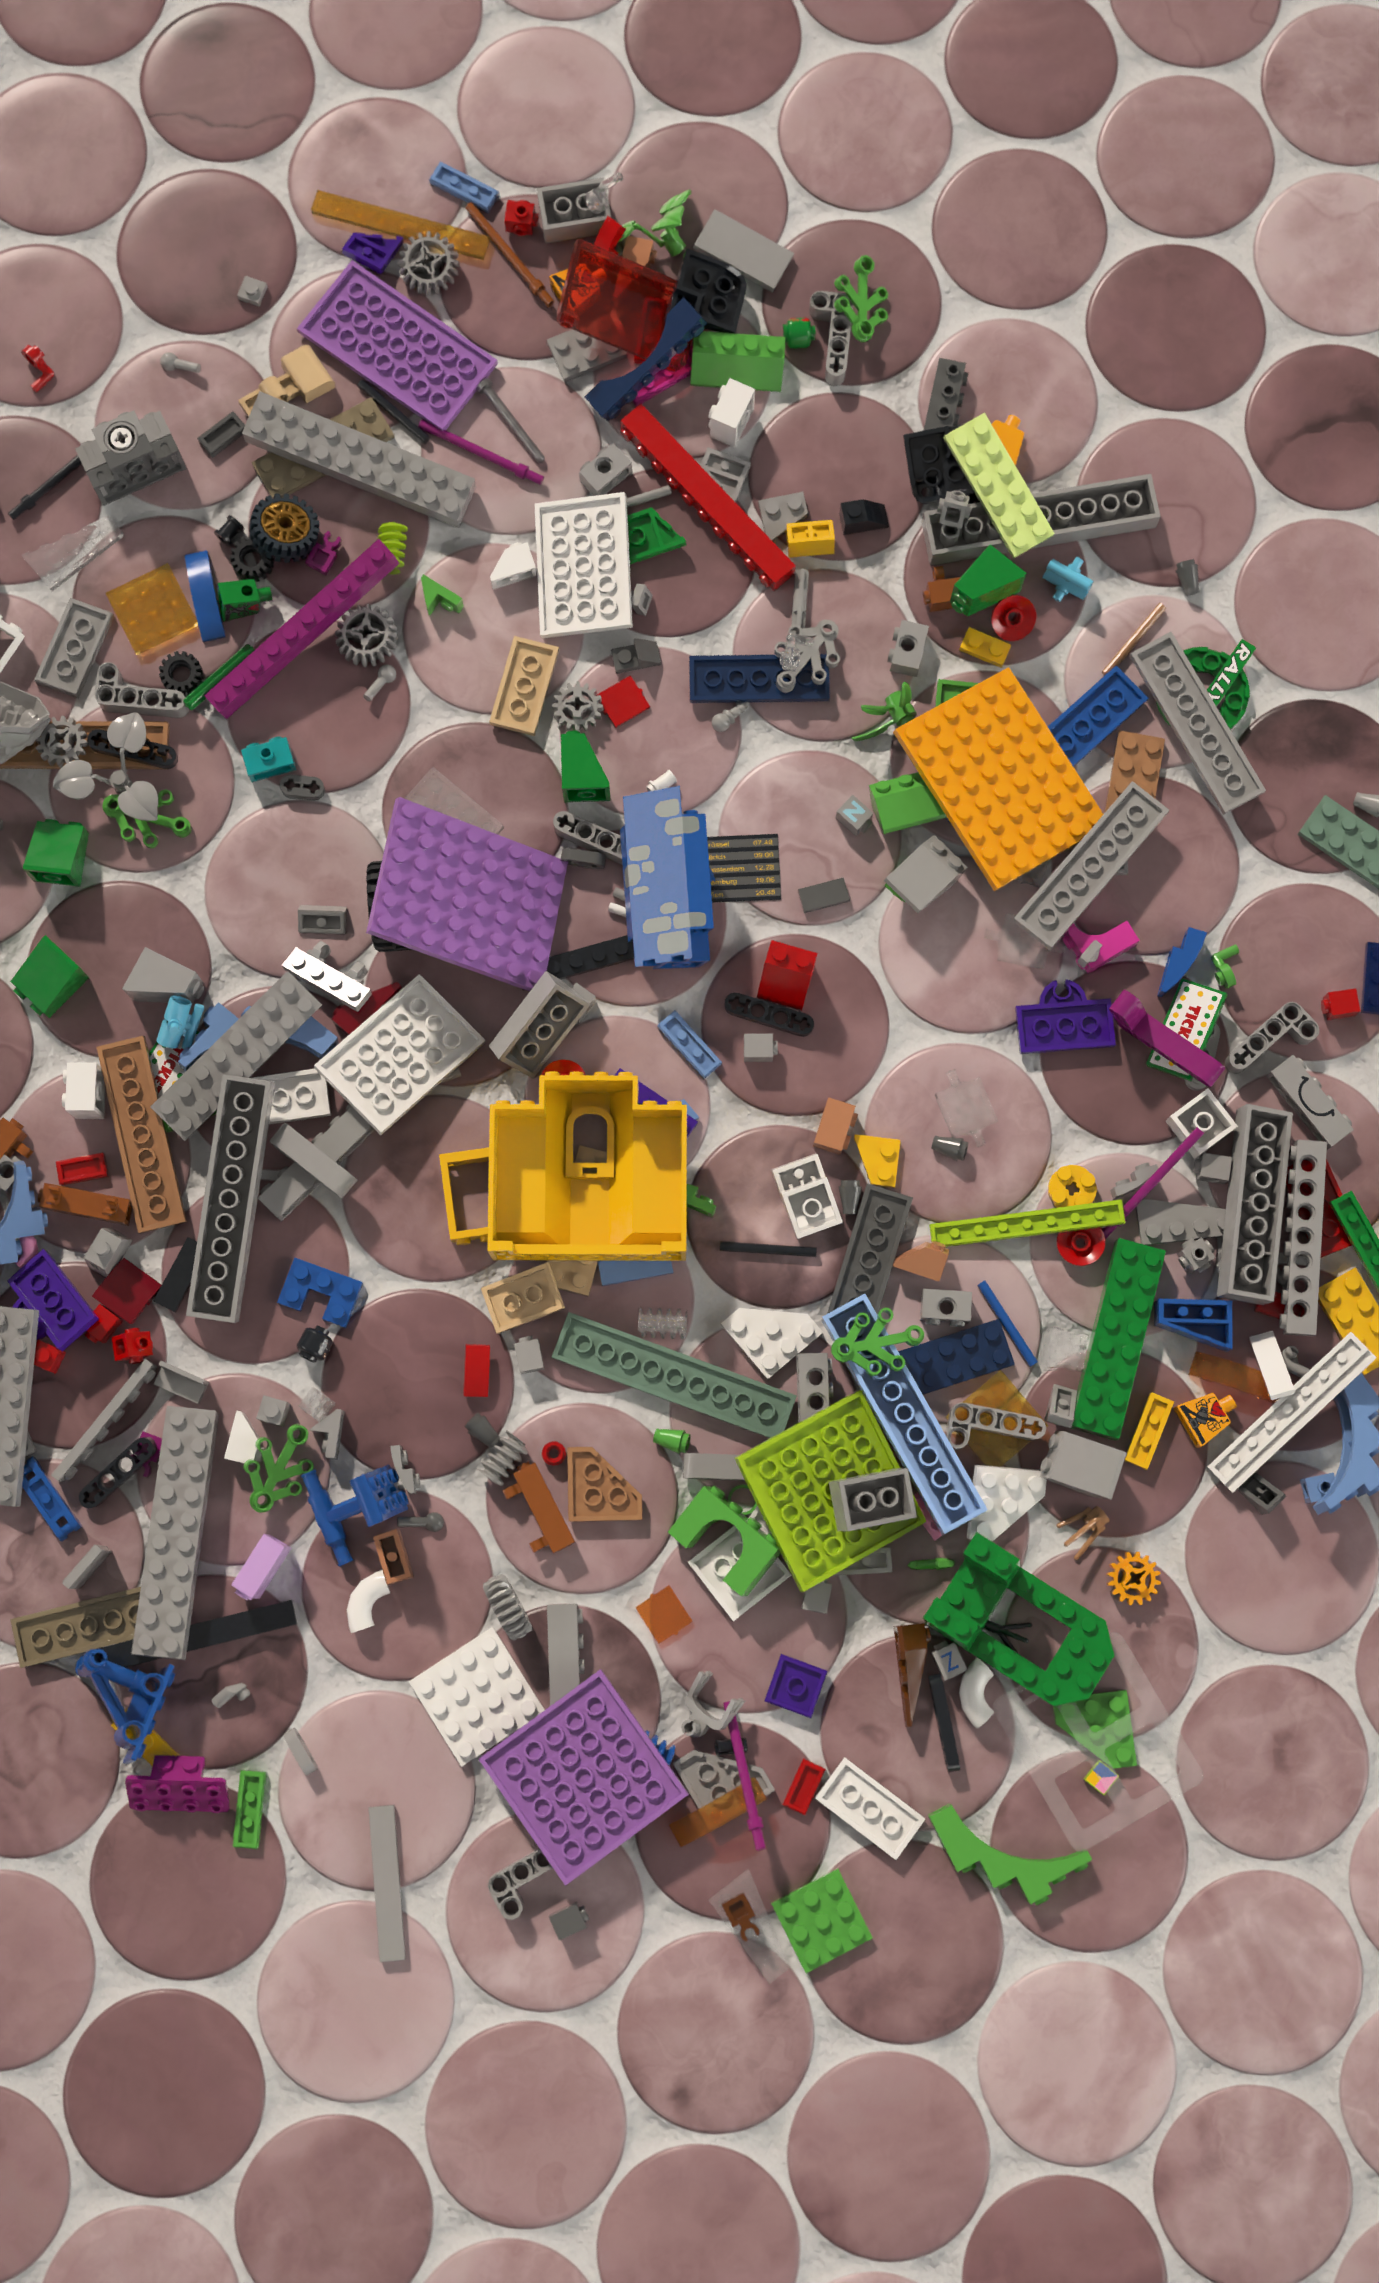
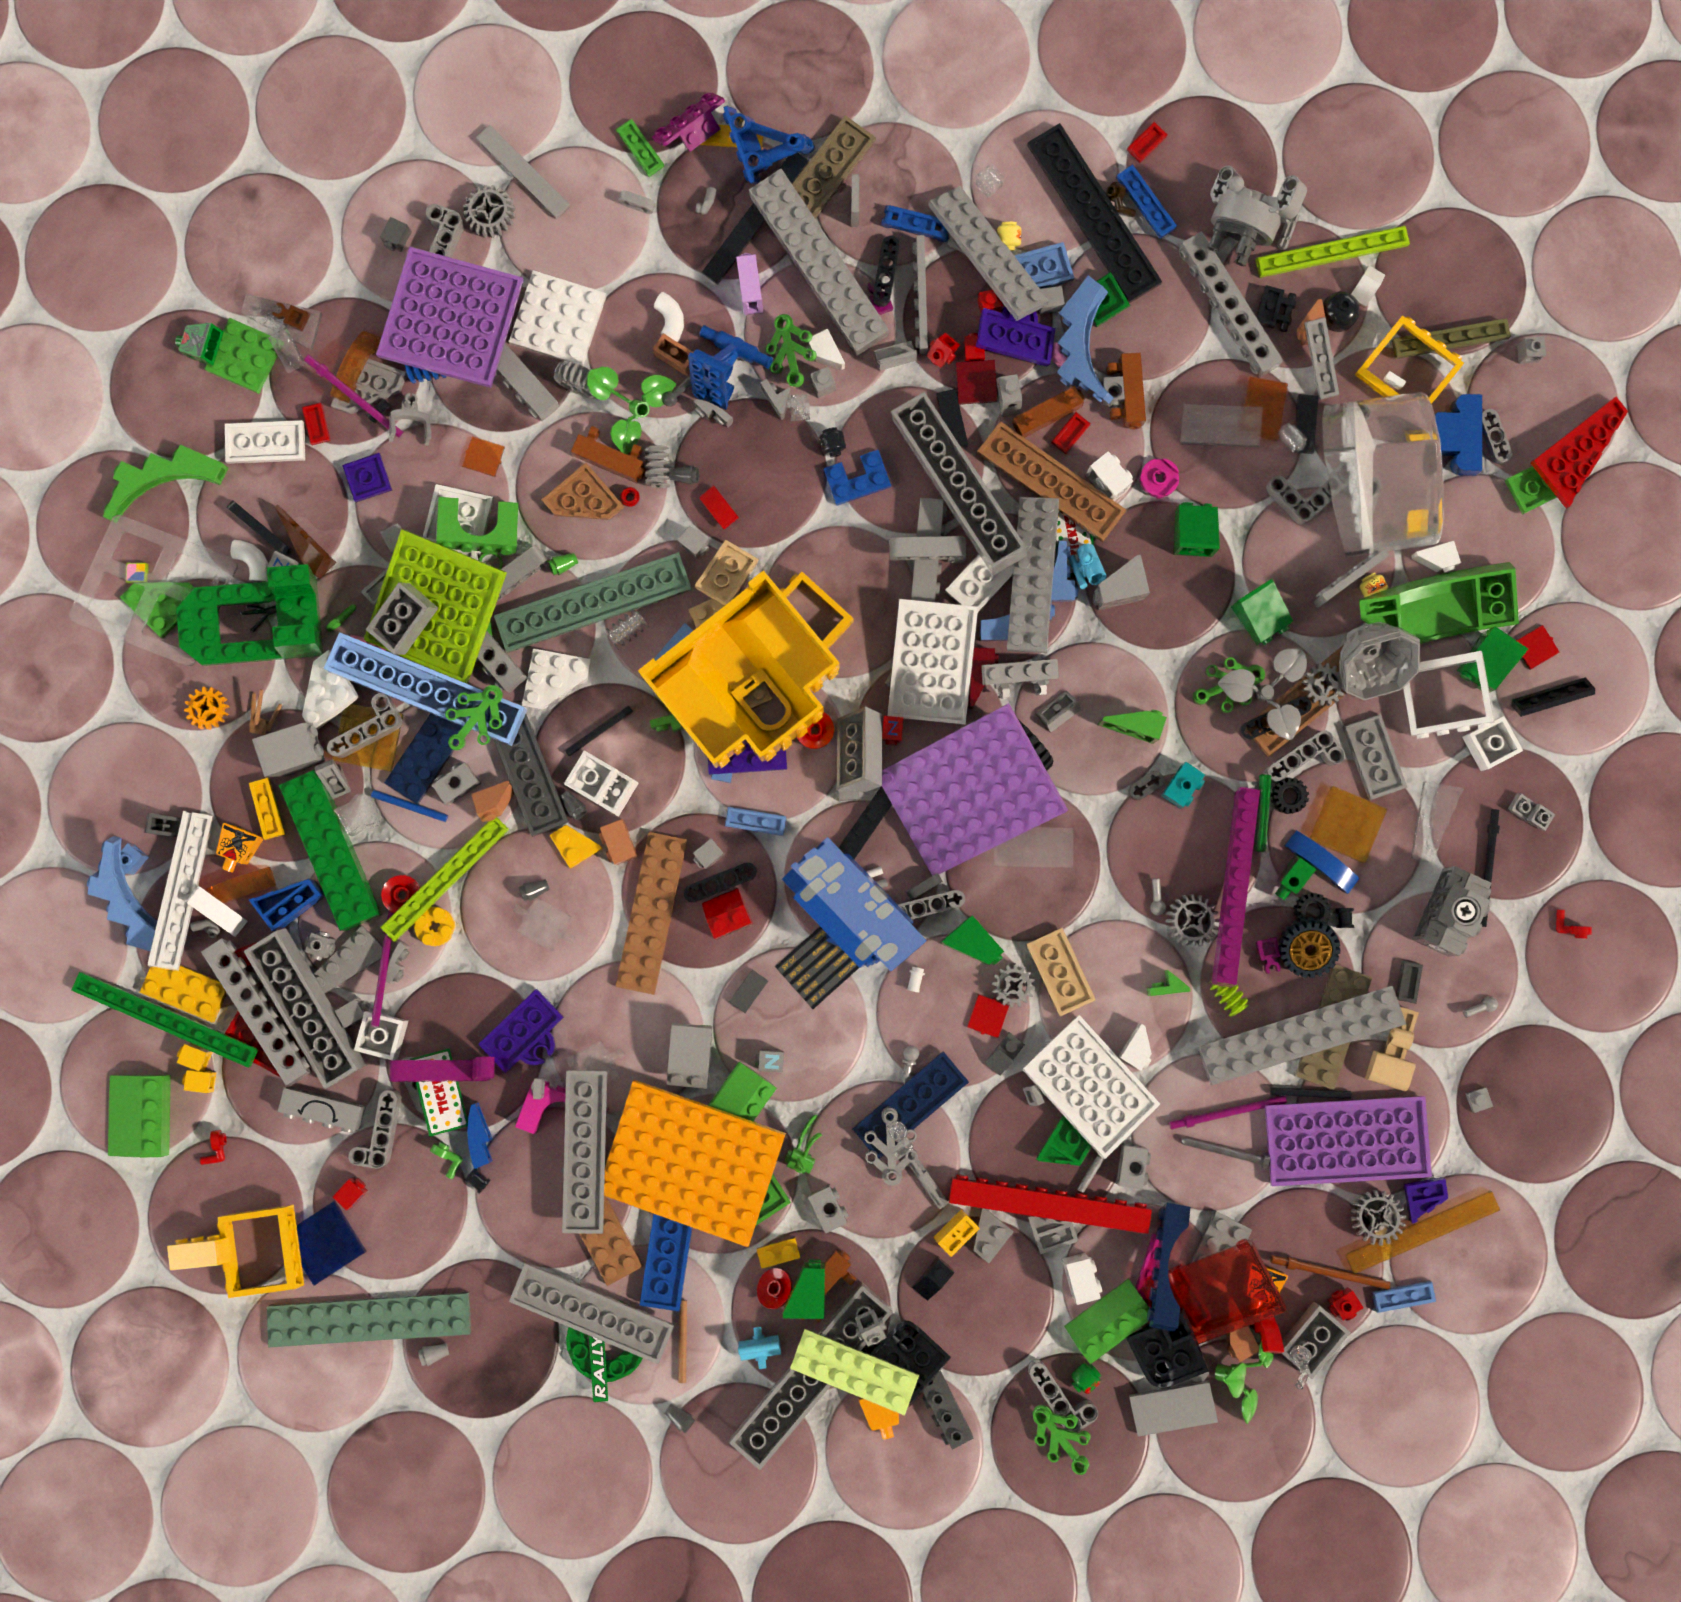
camera: 140 degrees right, 5 degrees up
(49, 1064) = (1158, 467): none -> dark pink plate
(255, 836) = (1139, 725): none -> bright green slope
(465, 1871) = (503, 211): none -> light grey gear
(490, 1022) = (892, 730): none -> red brick
(504, 1518) = (627, 433): none -> bright green plant
(774, 1885) = (287, 350): none -> clear plate
(856, 1038) = (651, 913): none -> medium nougat plate
(856, 1967) = (200, 342): none -> green torso
(1212, 923) = (477, 1180): none -> black bush

